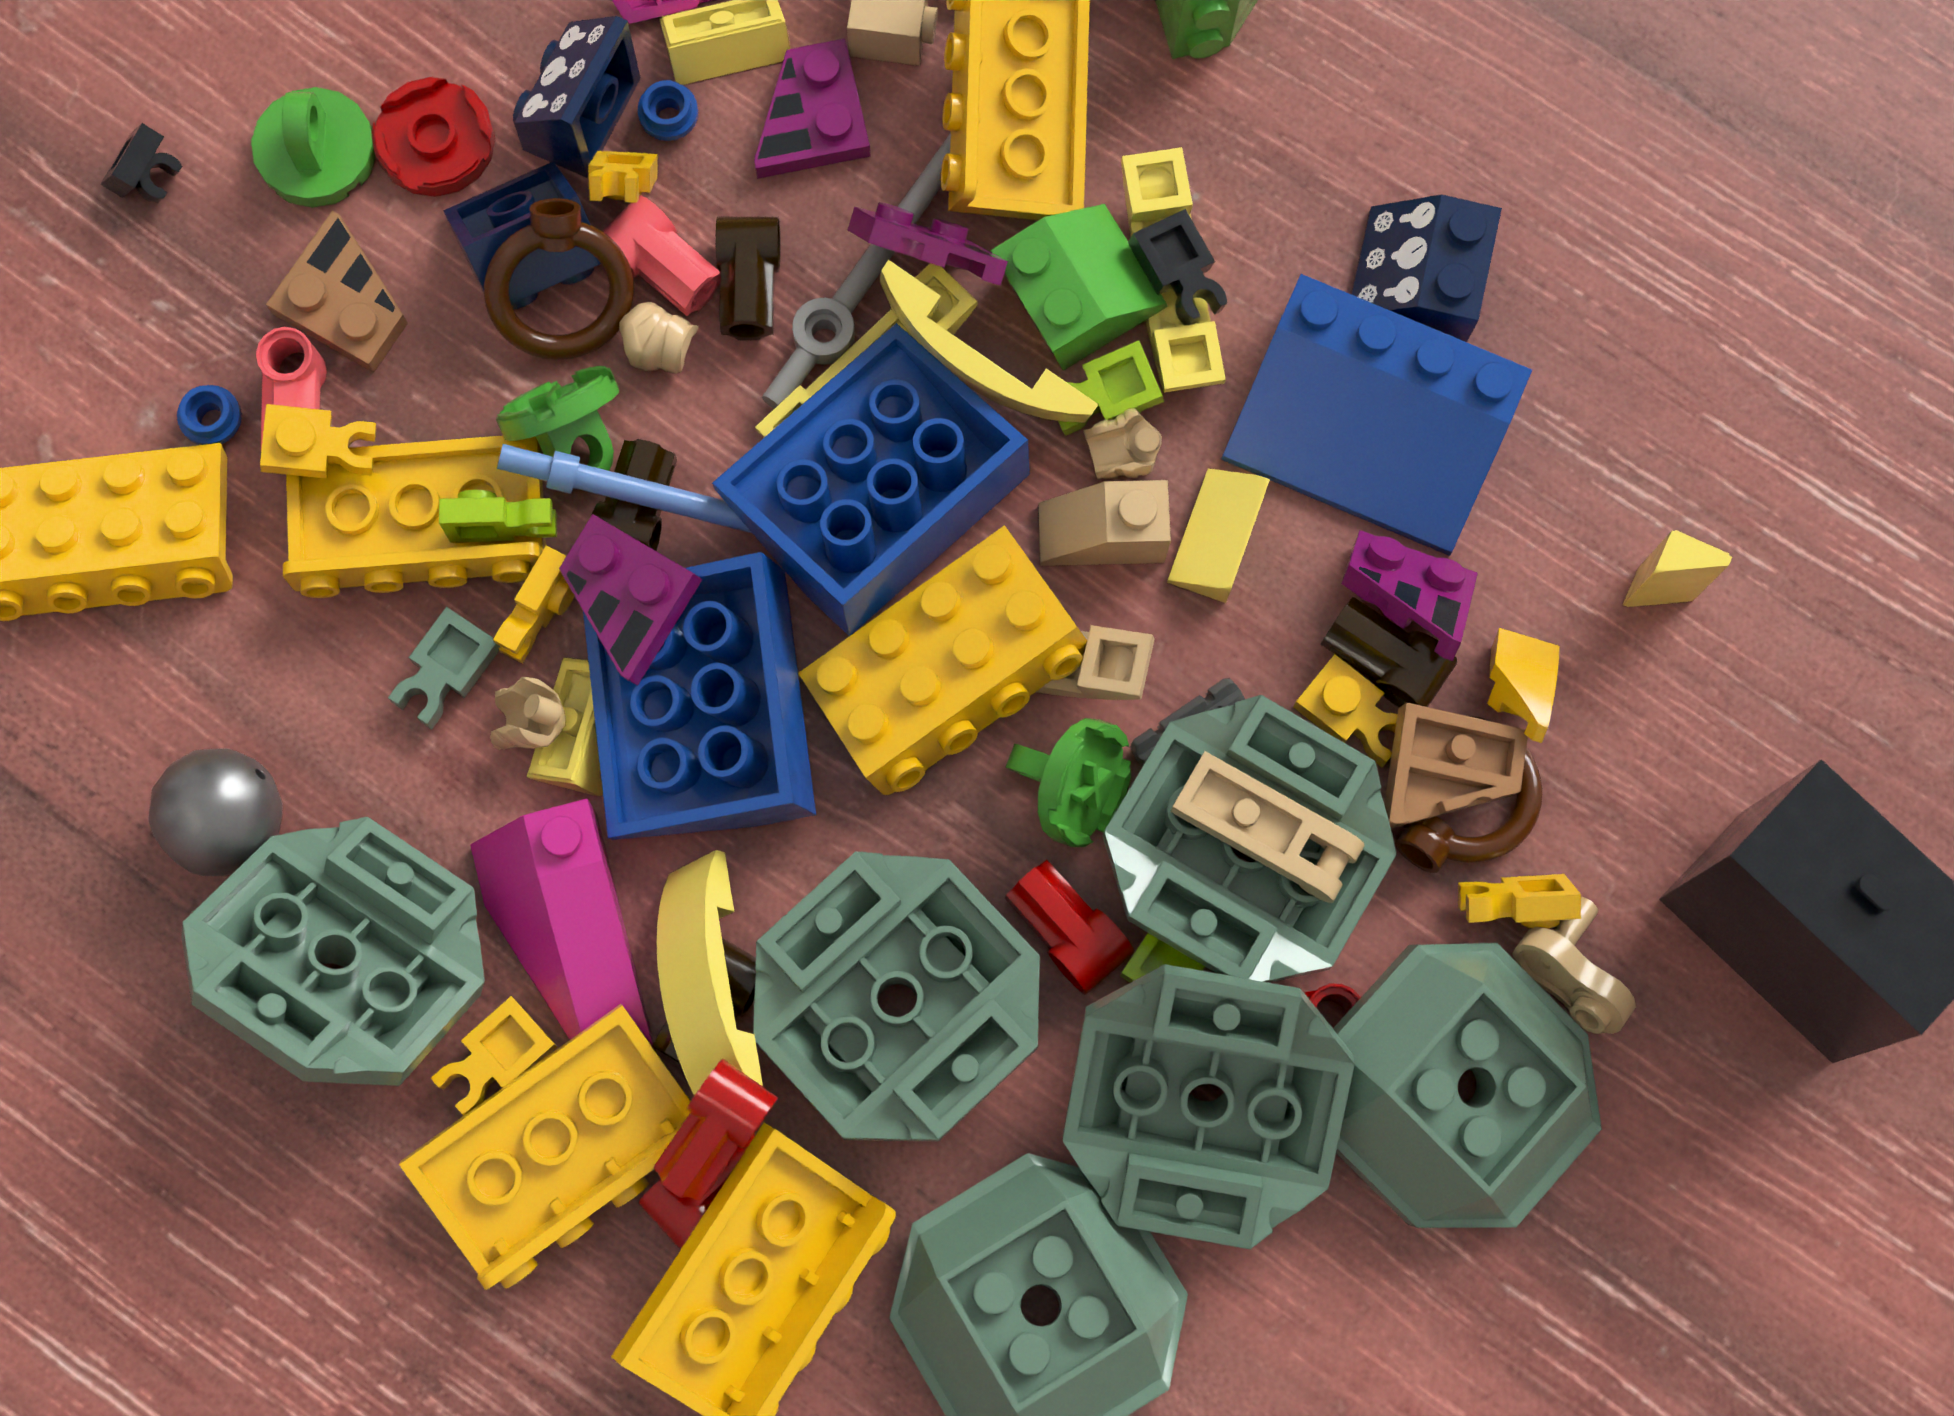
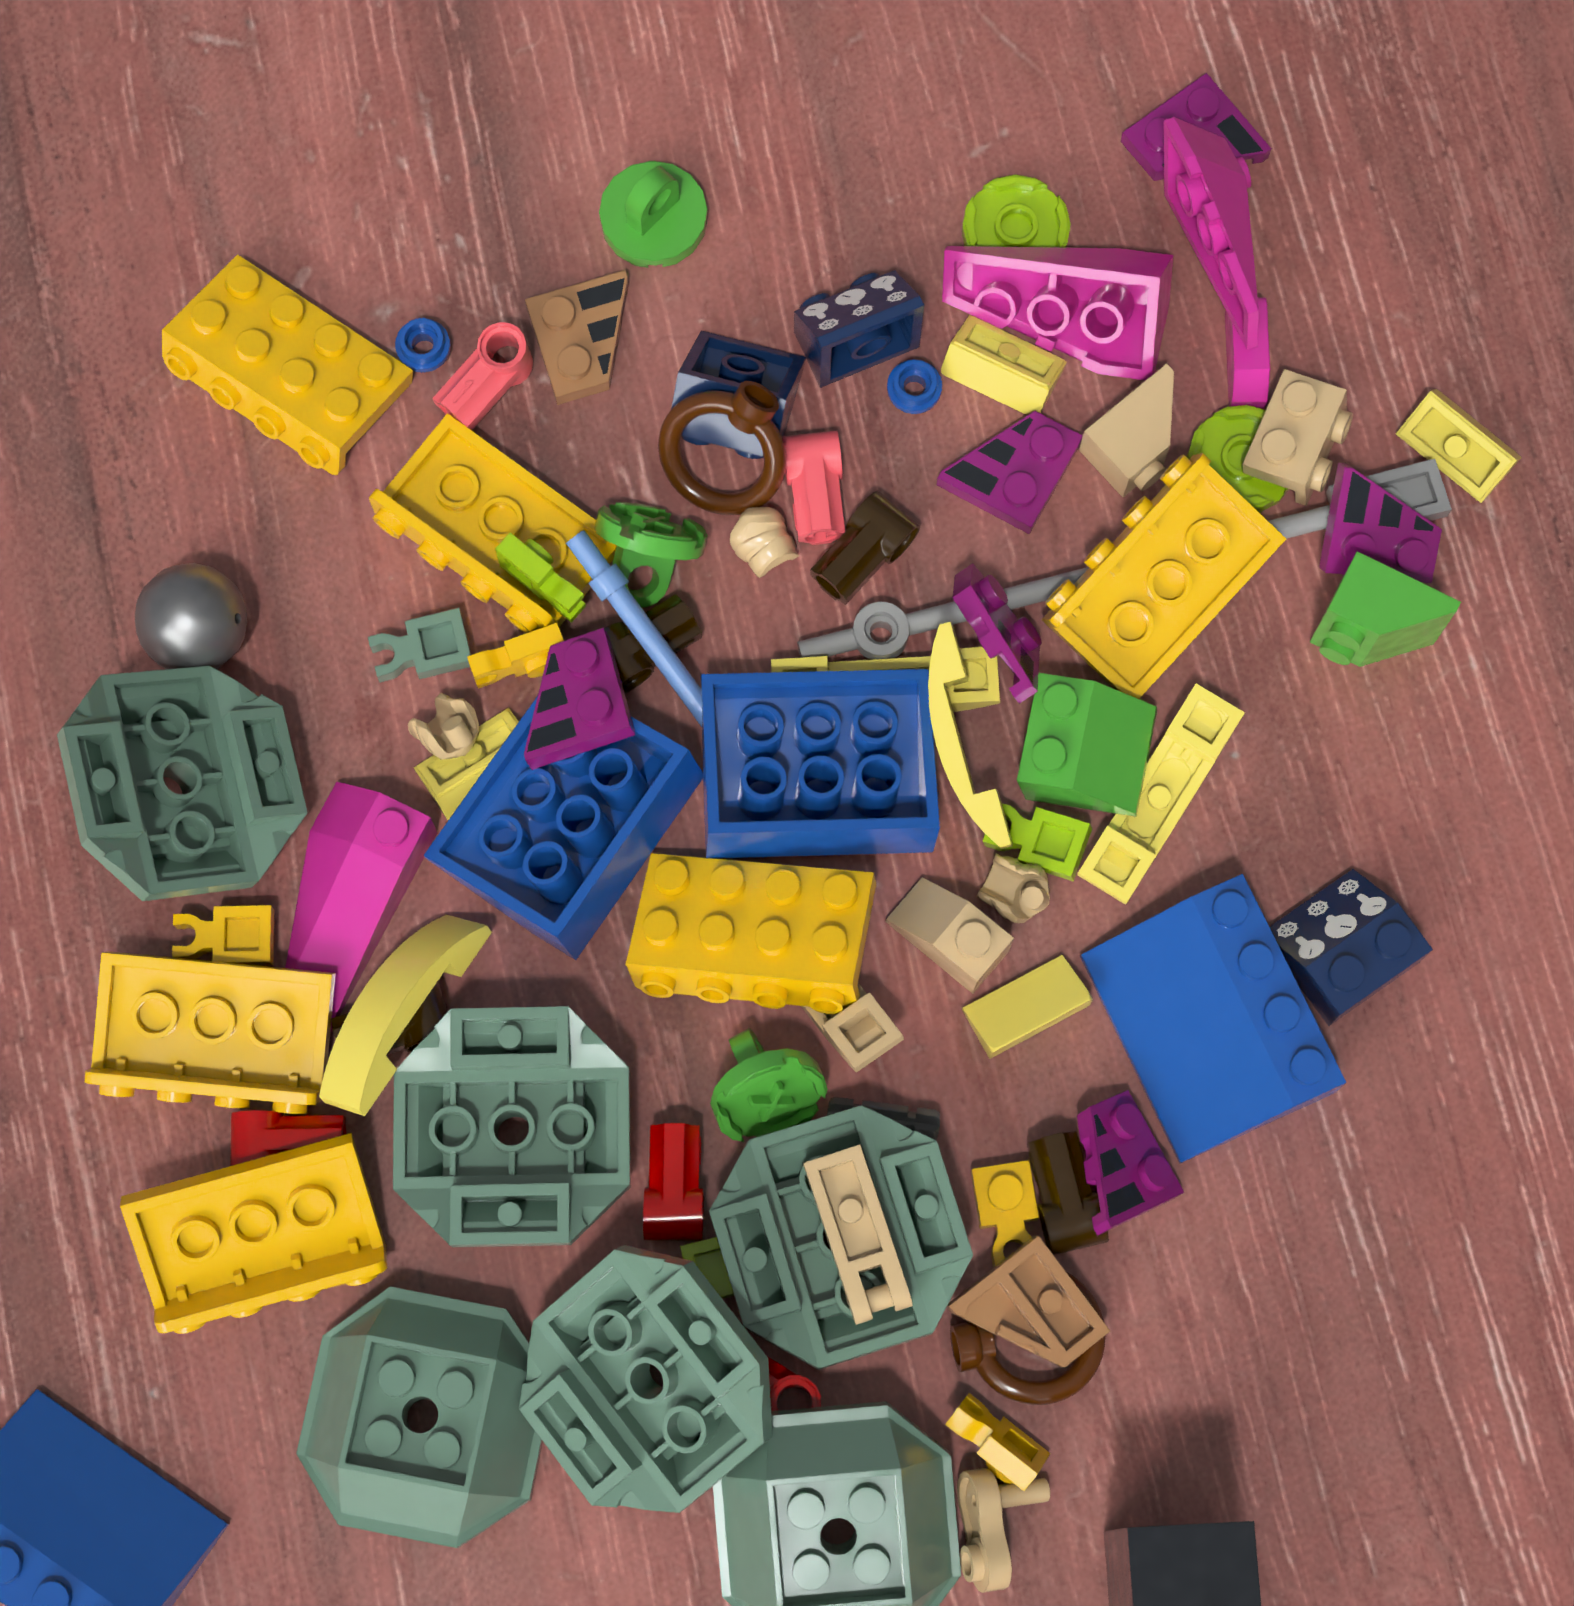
camera: 45 degrees right, 0 degrees up
(134, 164) = (525, 129): black tile -> none
(304, 442) = (463, 418): yellow plate -> none
(433, 137) = (740, 273): red tile -> none
(621, 175) = (837, 407): yellow plate -> none
(720, 1120) = (323, 1106): red piece -> none
(1176, 259) = (1168, 786): black plate -> none
(1524, 679) = (1144, 1293): yellow slope -> none
(1676, 571) = (1317, 1314): light yellow slope -> none

